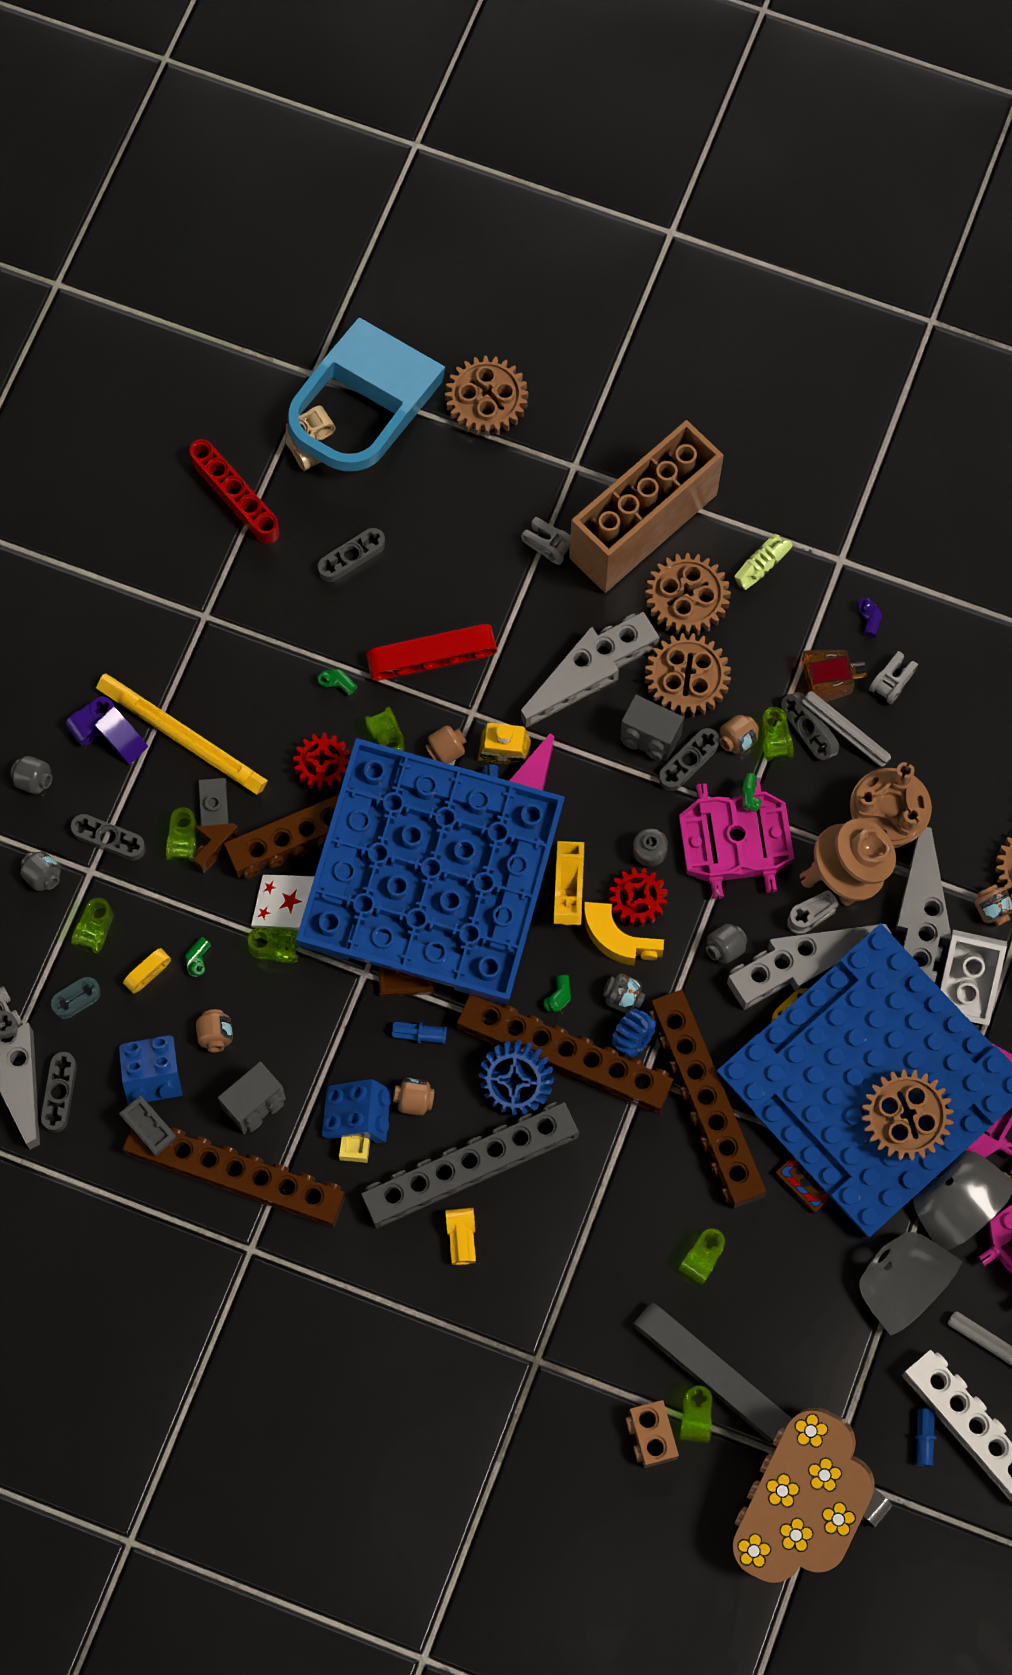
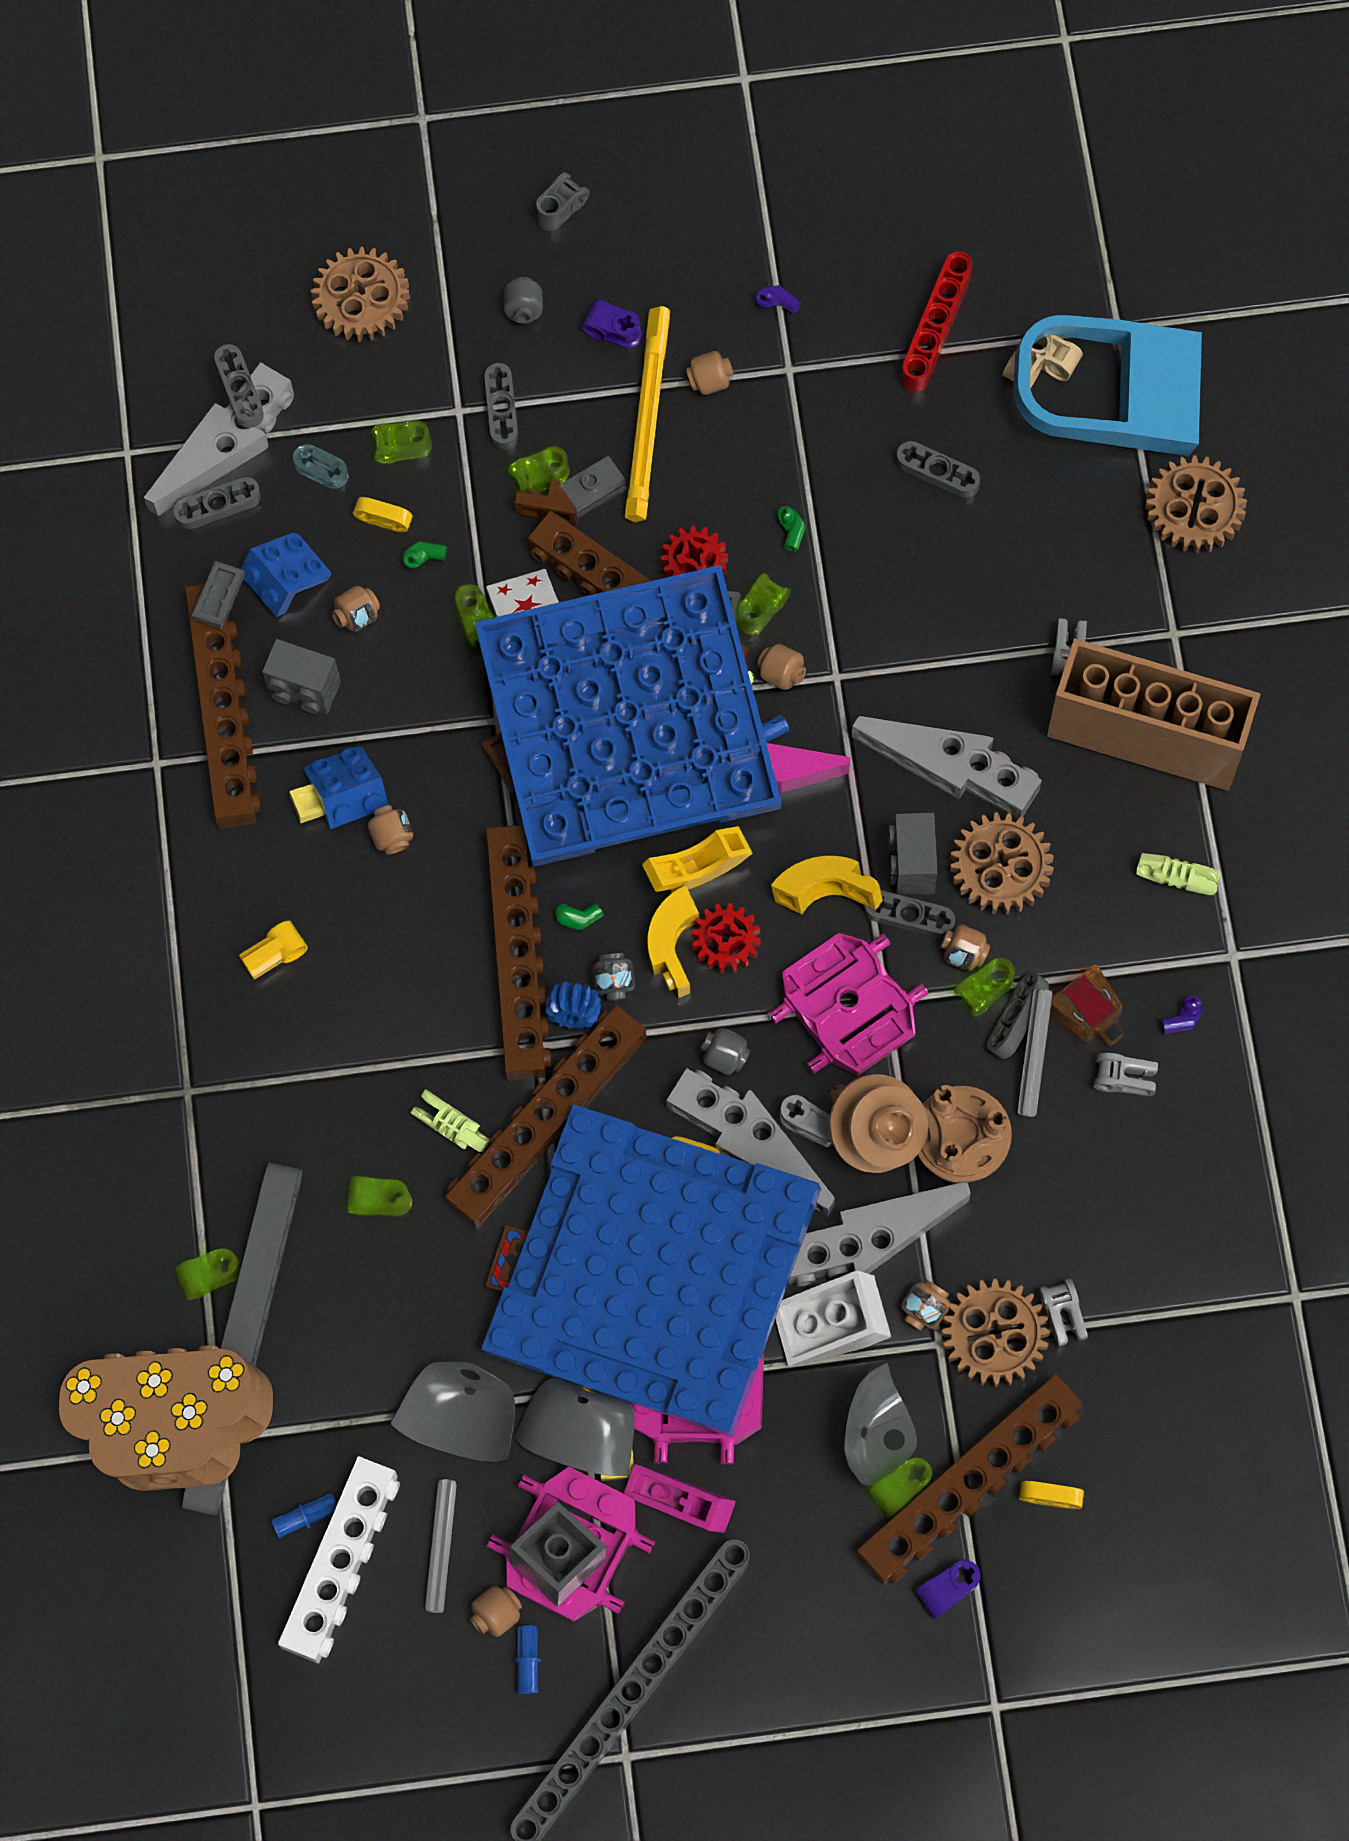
camera: 65 degrees right, 0 degrees up
(40, 871) = (428, 362): dark grey head -> none
(121, 735) = (609, 357): dark purple slope -> none
(141, 592) = (777, 296): none -> dark purple arm
(177, 671) = (709, 373): none -> medium nougat head
(384, 1212) = (433, 991): dark grey brick -> none
(419, 1032) = (462, 802): blue axle -> none
(431, 652) = (875, 600): red beam -> none
(494, 1077) = (452, 912): blue gear -> none
(504, 744) = (813, 718): yellow torso -> none
(632, 798) = (823, 877): none -> yellow arch
(643, 851) = (785, 921): dark grey head -> none
(660, 1433) = (172, 1245): medium nougat brick -> none
(675, 1171) = (451, 1123): none -> yellowish green hinge
(700, 612) = (1108, 795): medium nougat gear -> none
(749, 802) = (900, 982): green arm -> none
(931, 1107) = (600, 1295): medium nougat gear -> none

